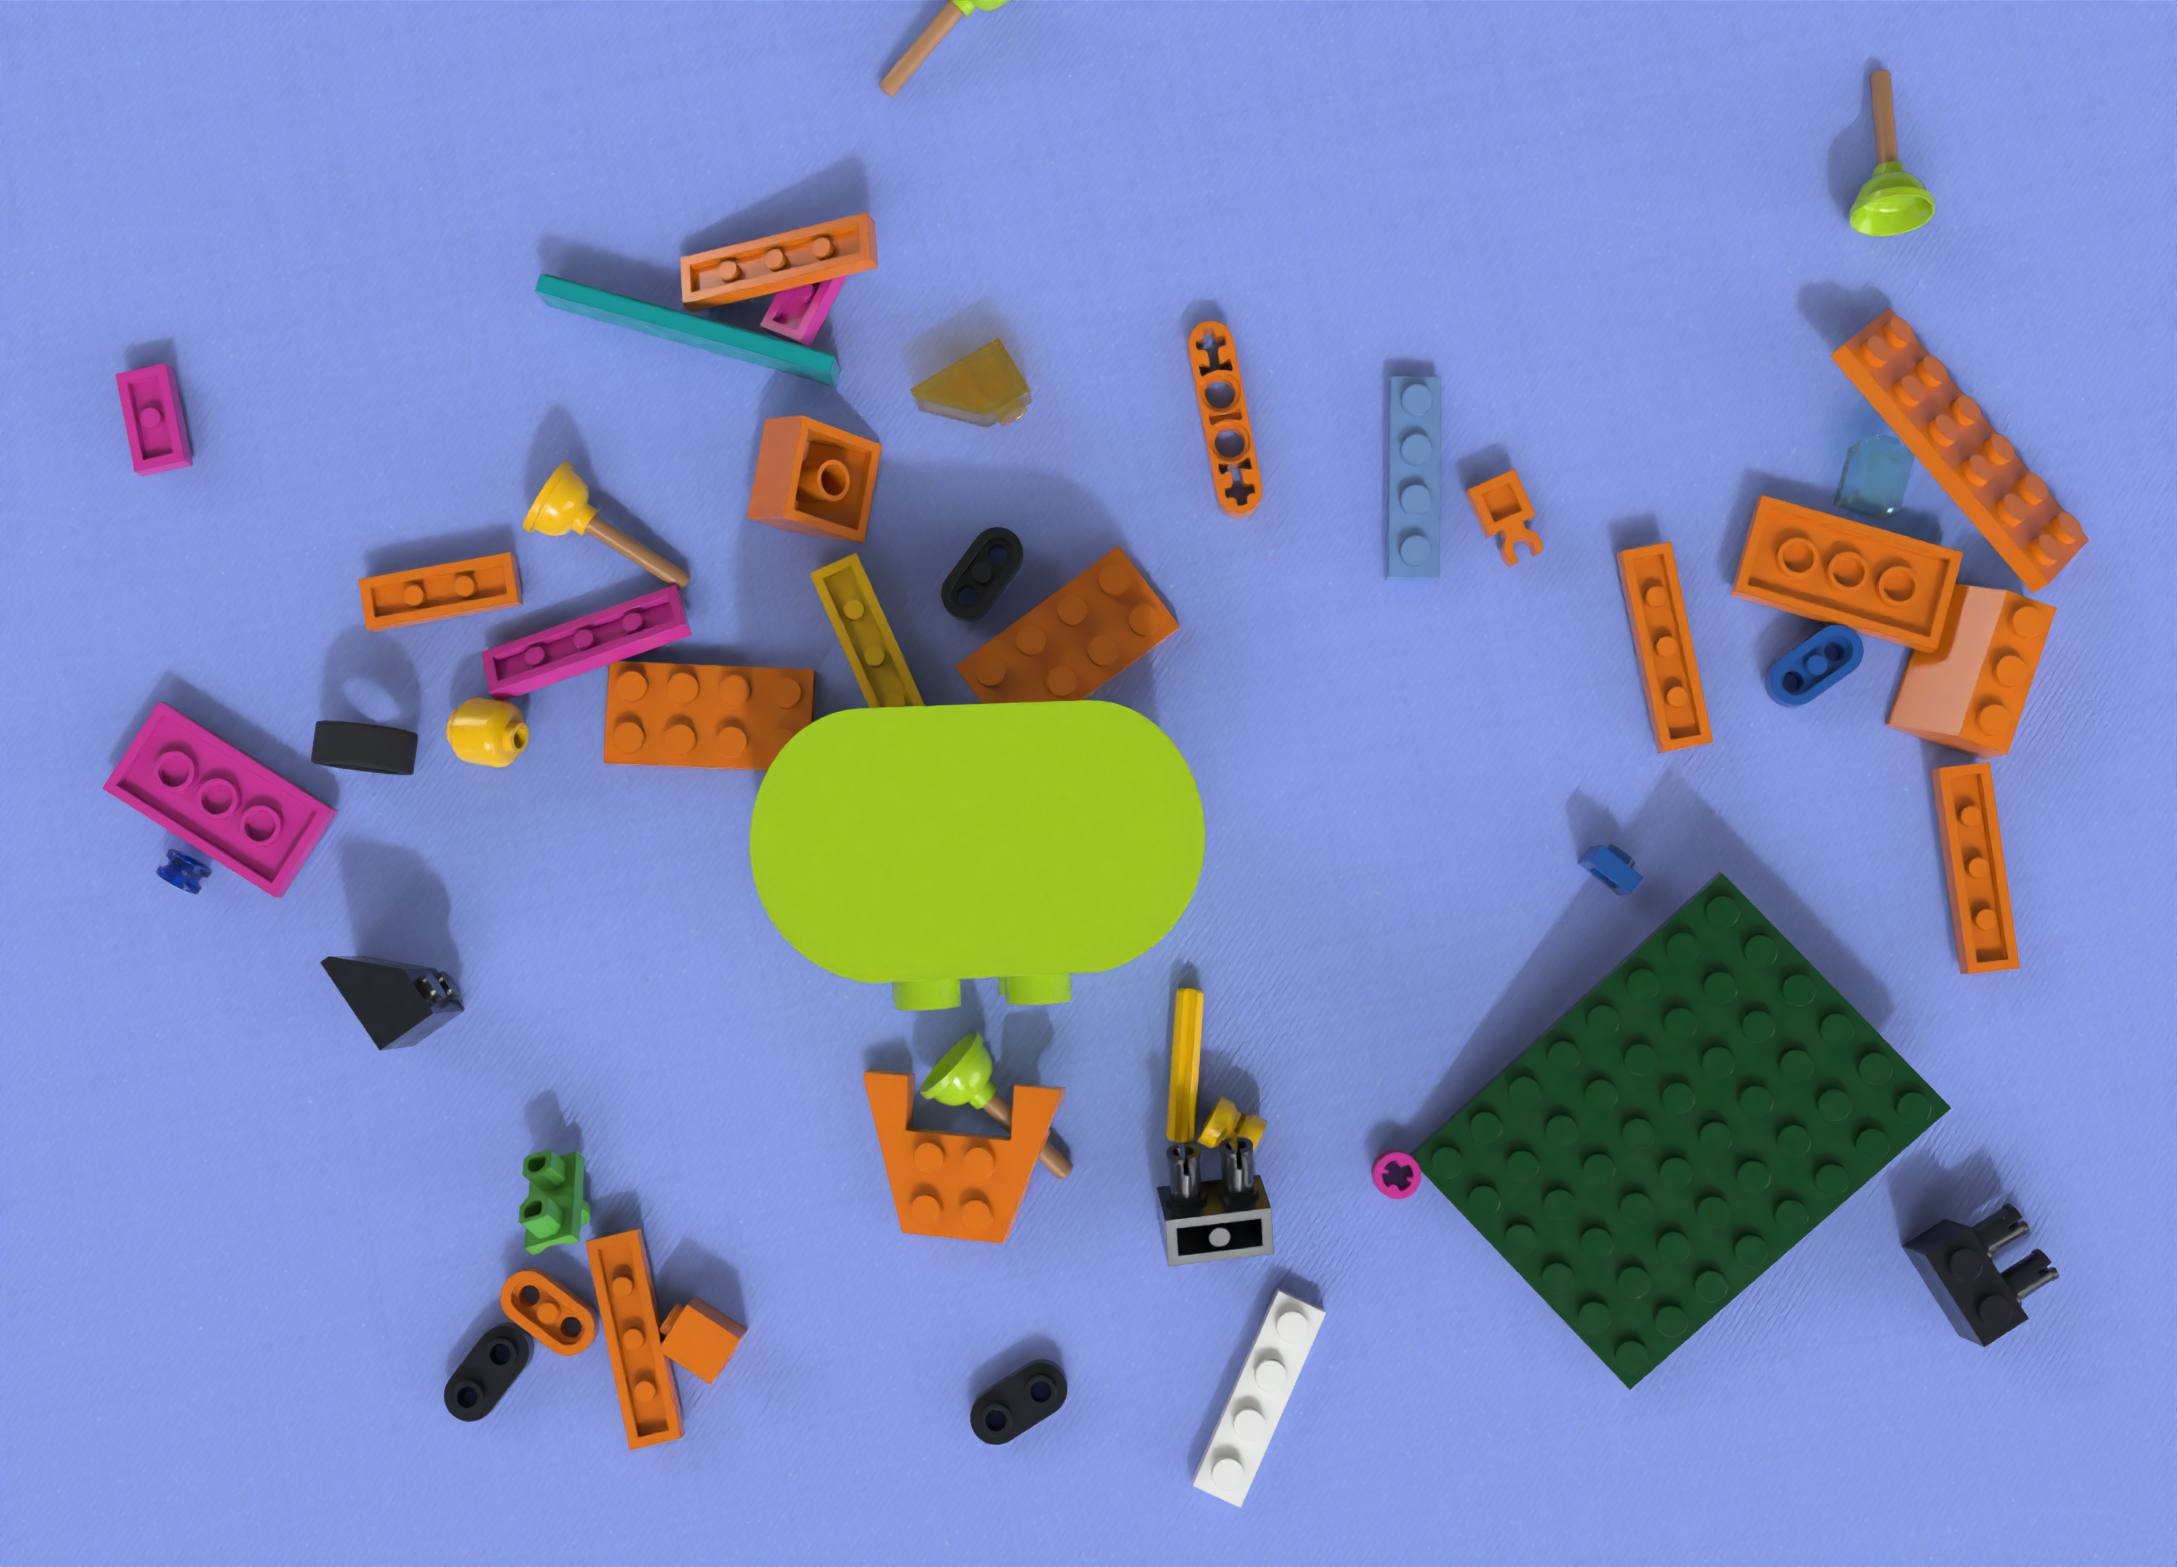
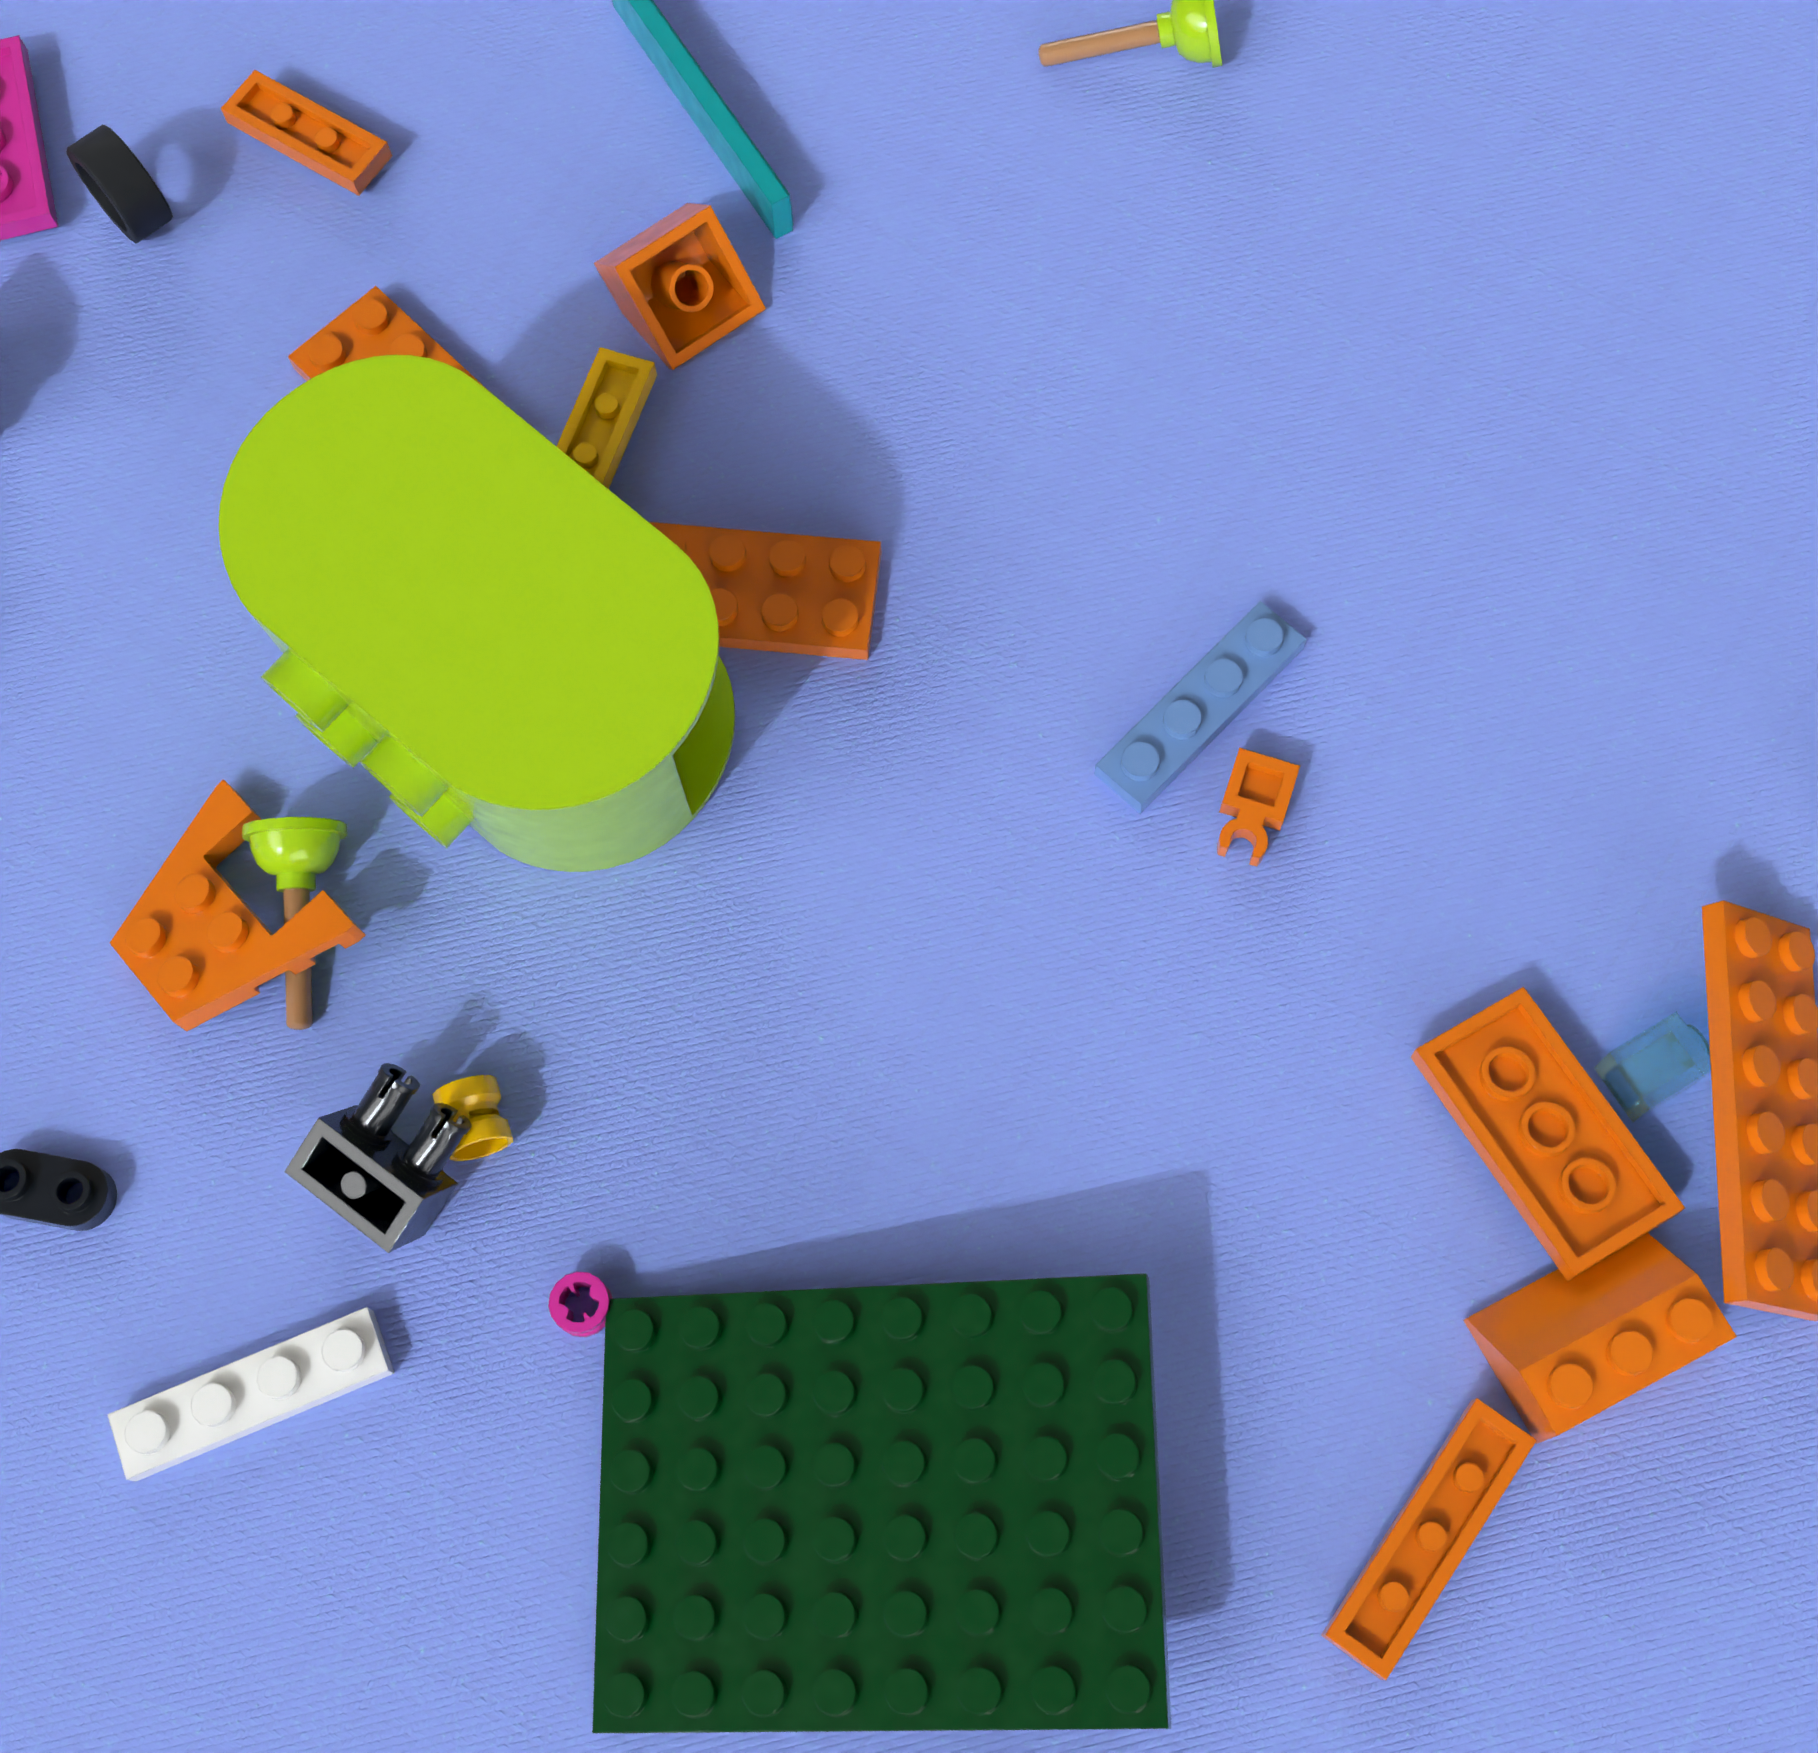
camera: 45 degrees right, 15 degrees down
(487, 732) = (221, 253): yellow head -> none
(565, 506) = (461, 135): yellow piece -> none
(586, 643) = (371, 257): dark pink plate -> none
(779, 262) = (819, 97): orange plate -> none
(800, 311) = (822, 144): dark pink plate -> none
(976, 389) = (884, 320): clear yellow slope -> none
(982, 575) = (741, 465): black plate -> none
(1185, 1065) = (496, 1024): yellow axle -> none
(1219, 420) = (1081, 522): orange beam -> none
(1612, 868) = (1057, 1201): blue plate -> none
(1664, 647) = (1298, 1048): orange plate -> none
(1812, 668) = (1433, 1190): blue plate -> none

